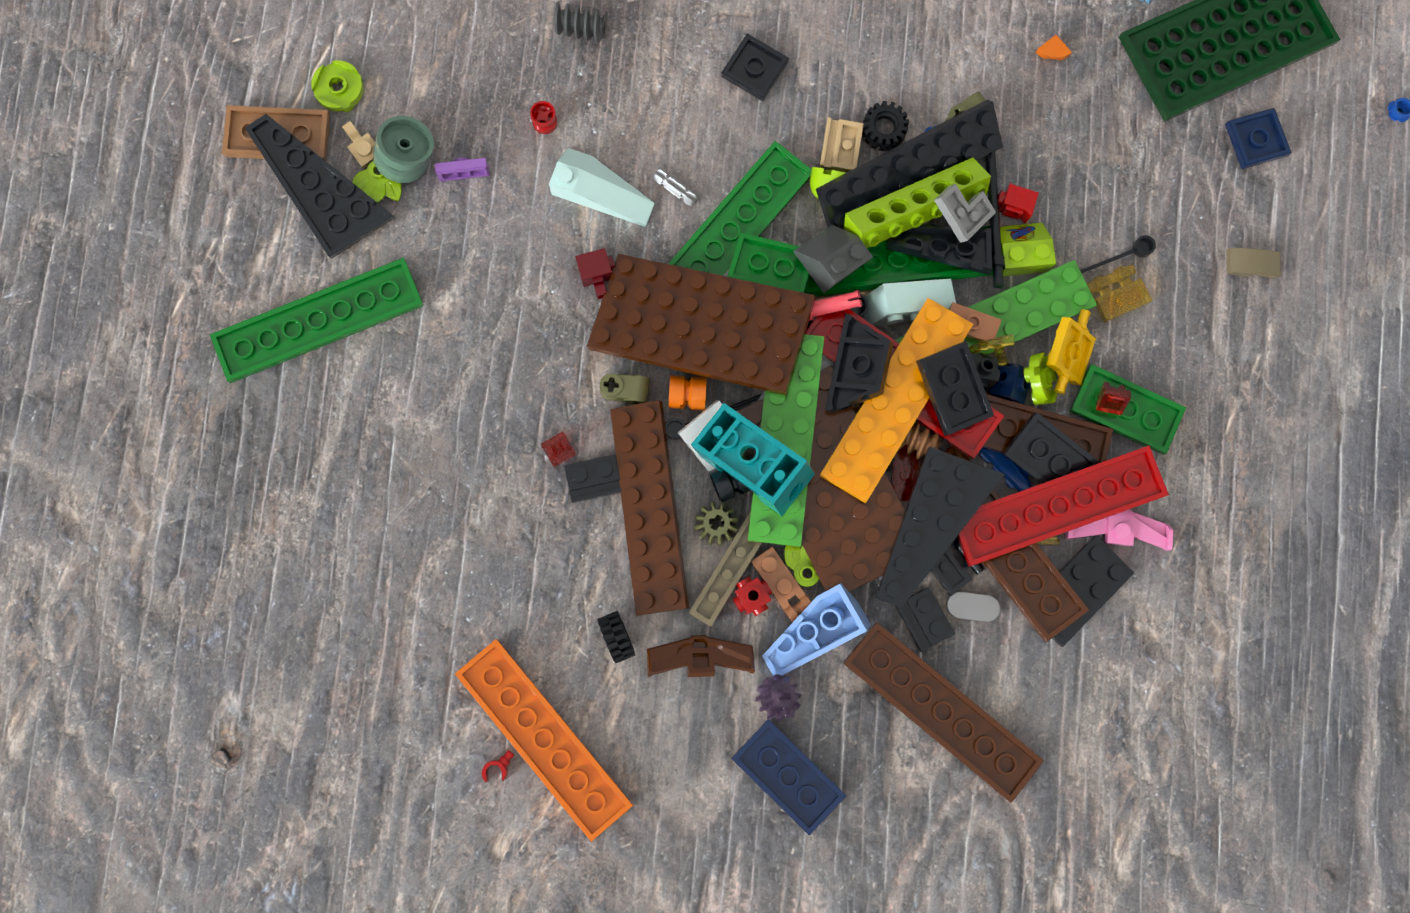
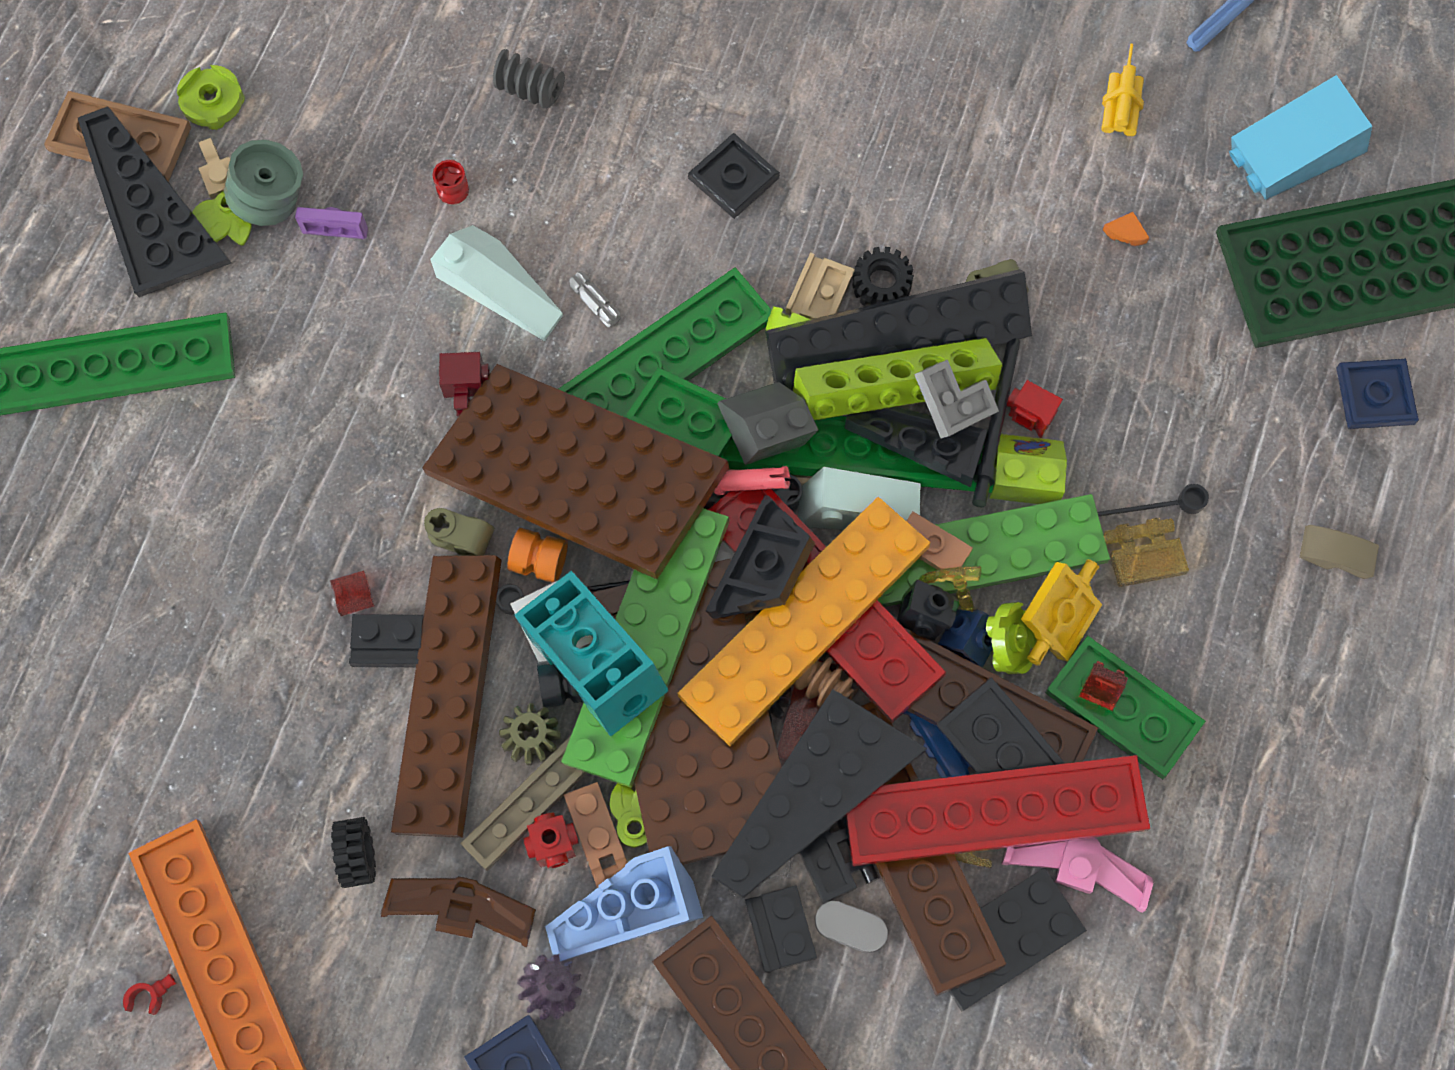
camera: 20 degrees right, 10 degrees down
(955, 388) = (883, 618): black plate -> none

